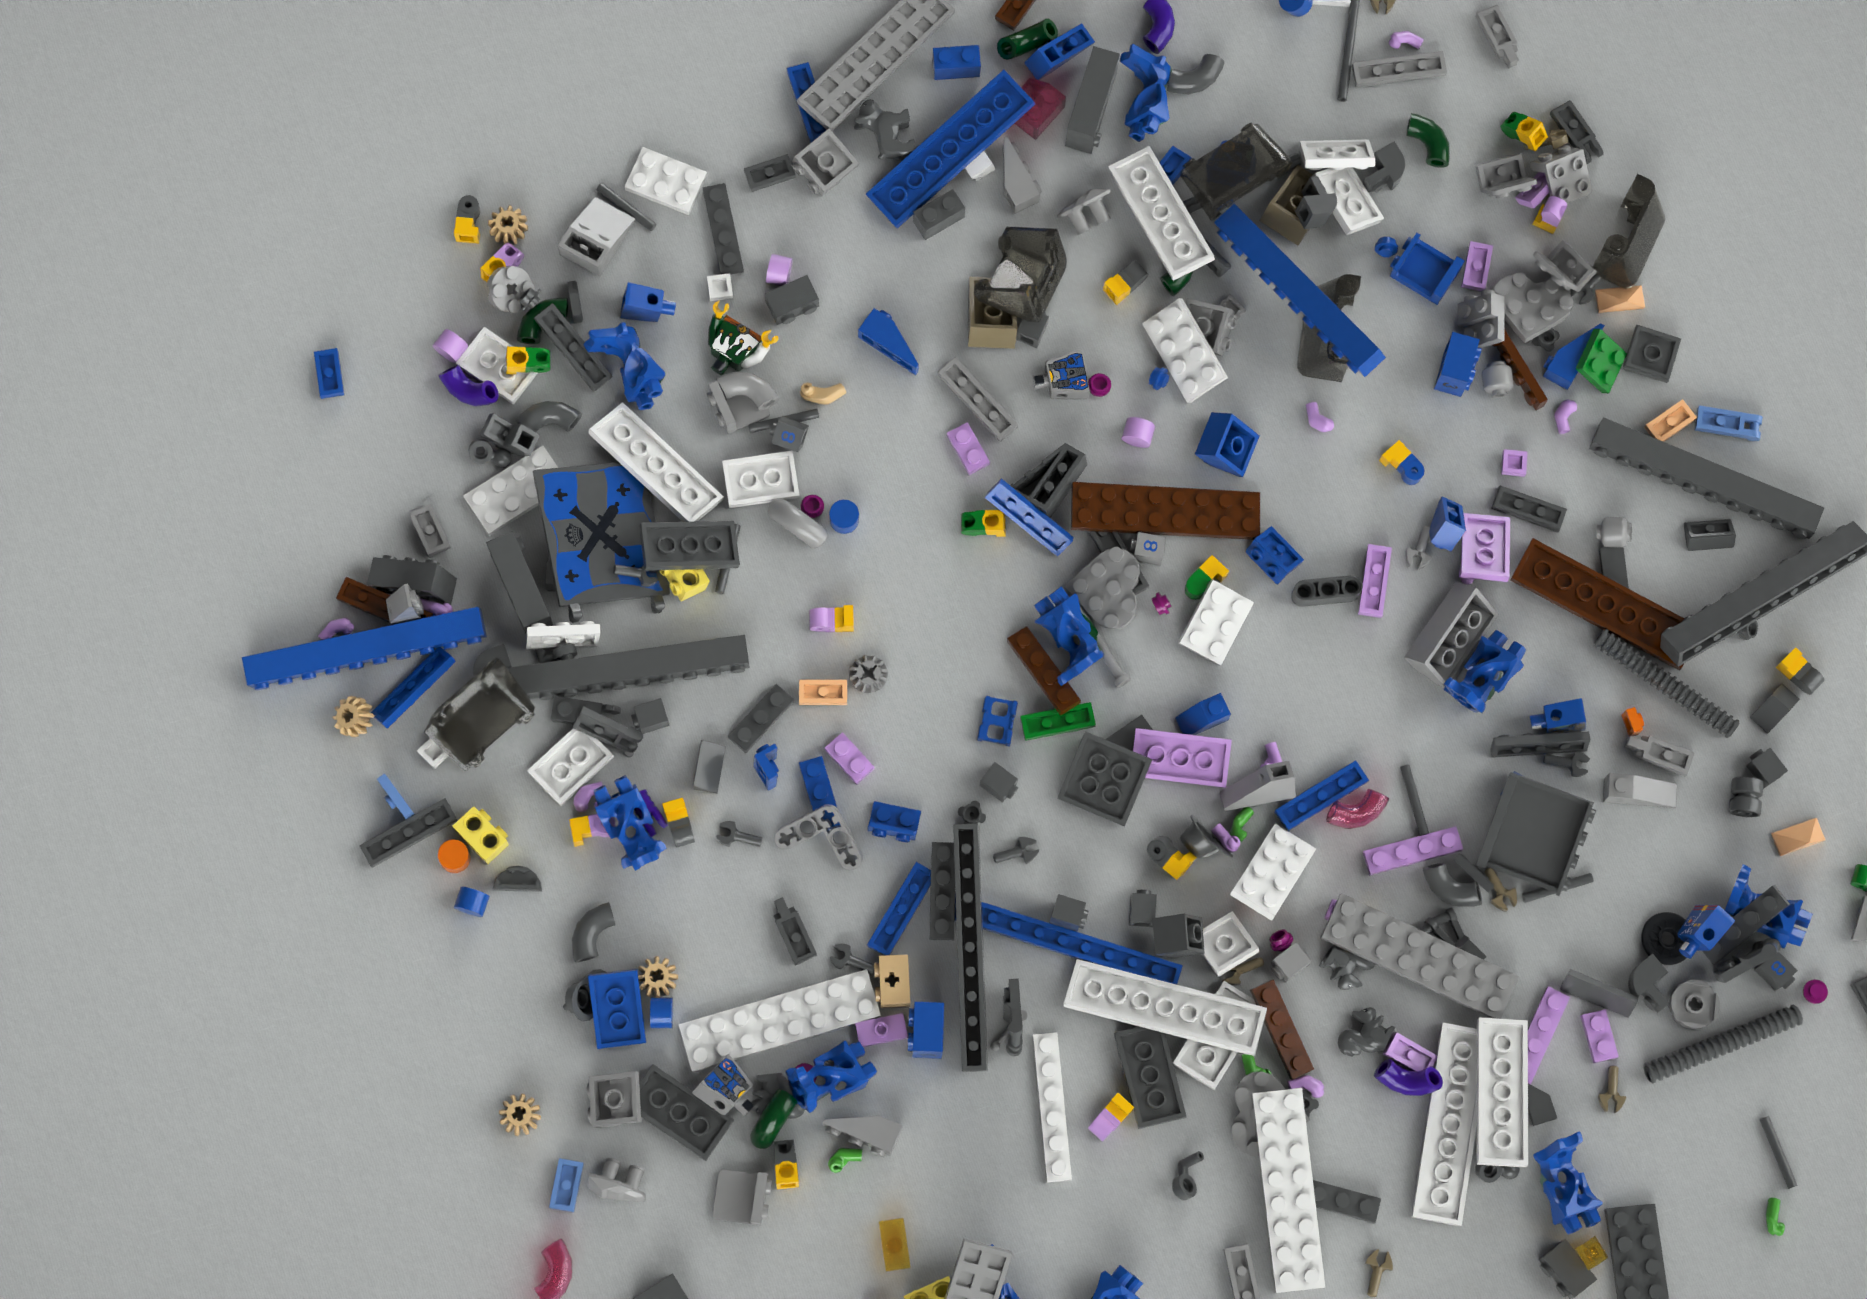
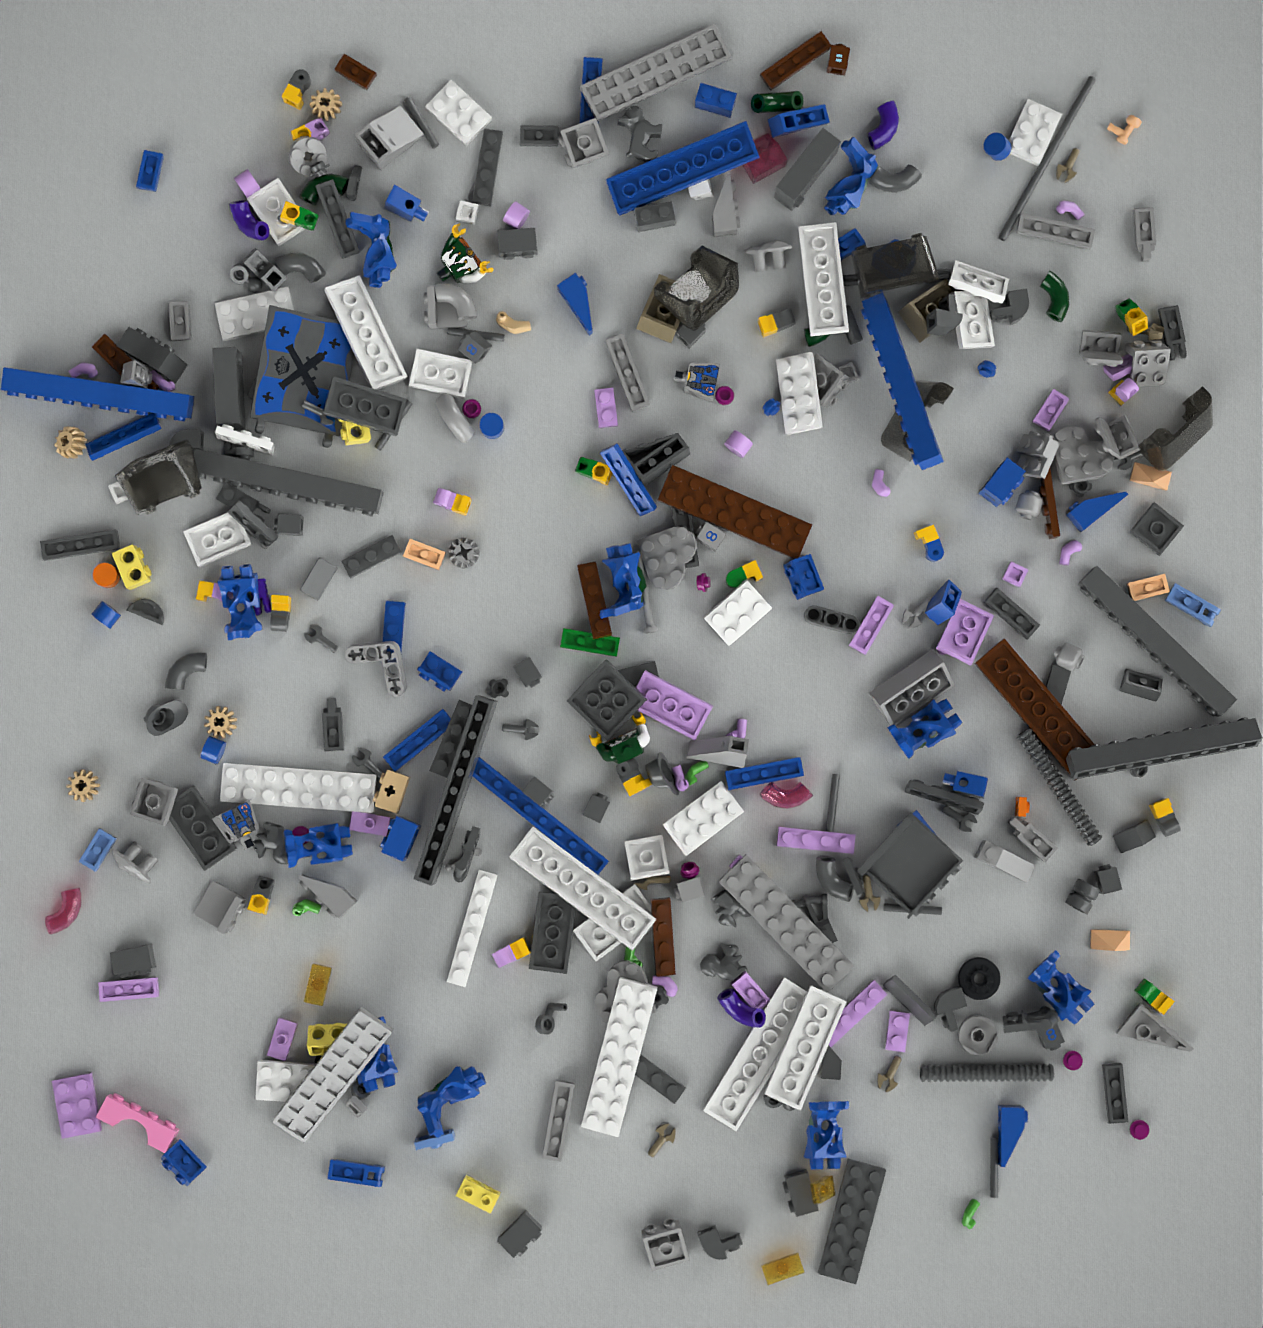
camera: 25 degrees right, 10 degrees up
(394, 798) = (79, 515): medium blue plate -> none
(528, 177) = (355, 72): none -> reddish brown plate
(584, 795) = (216, 566): lavender arm -> none
(617, 1008) = (181, 735): blue plate -> none
(765, 765) = (357, 595): blue bracket -> none
(772, 1119) = (263, 860): dark green cylinder -> none
(849, 758) = (425, 611): lavender plate -> none
(990, 719) = (551, 628): blue piece -> none
(1146, 824) = (624, 746): none -> torso
(1178, 936) = (613, 839): dark grey head -> none
(1203, 715) = (699, 680): blue slope -> none
(1227, 443) = (802, 478): blue slope -> none
(1425, 269) = (1010, 397): blue panel -> none
(1601, 361) = (1114, 520): green plate -> none
(1703, 929) = (1006, 984): blue torso -> none
(1748, 922) = (1038, 993): dark grey plate -> none
(1777, 1097) = (1010, 1127): none -> blue slope

